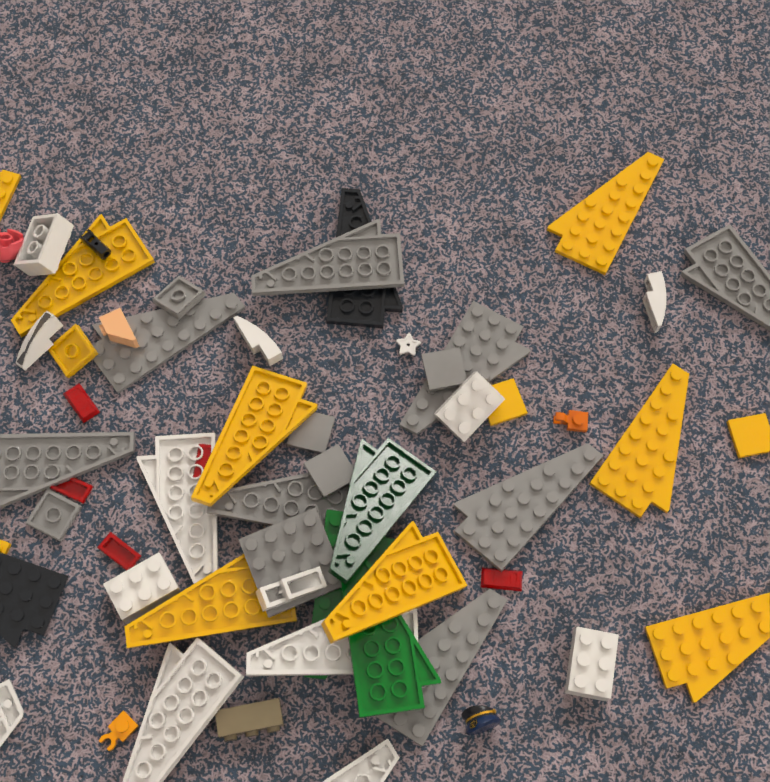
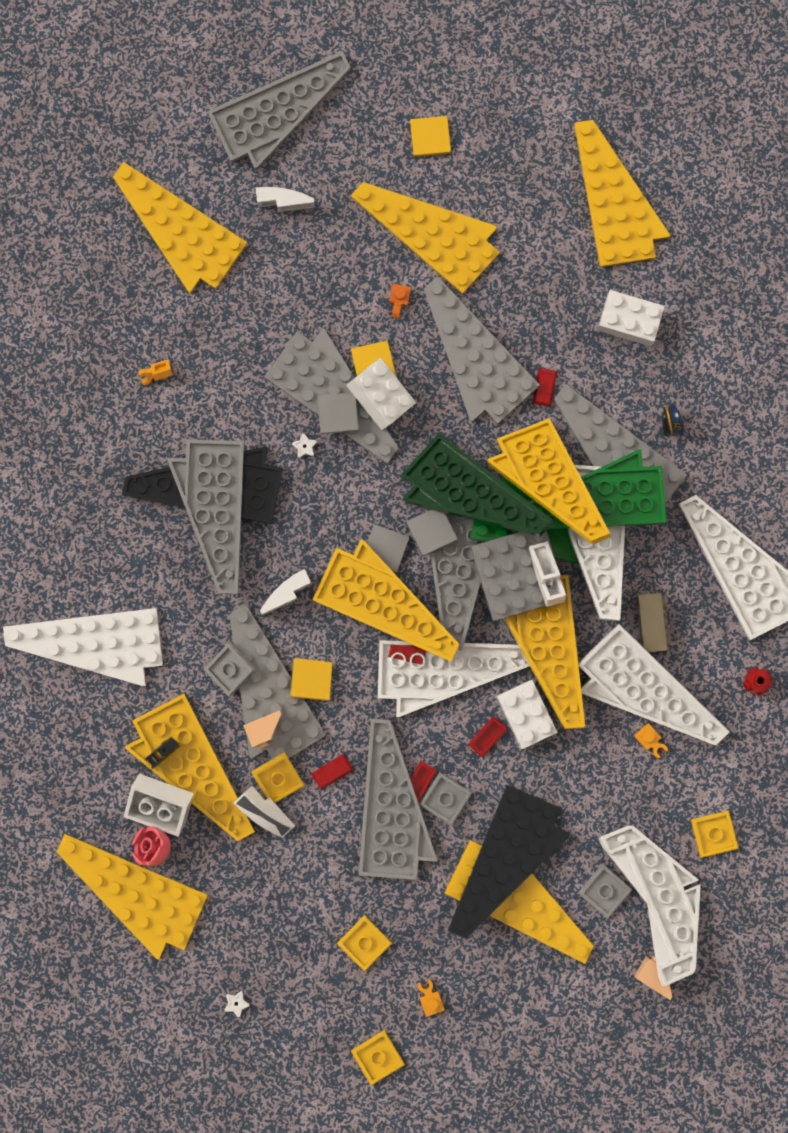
camera: 85 degrees left, 15 degrees up
(171, 371) = (311, 679): none -> yellow tile
(199, 188) = (106, 644): none -> white wing
(465, 208) = (157, 371): none -> light orange plate

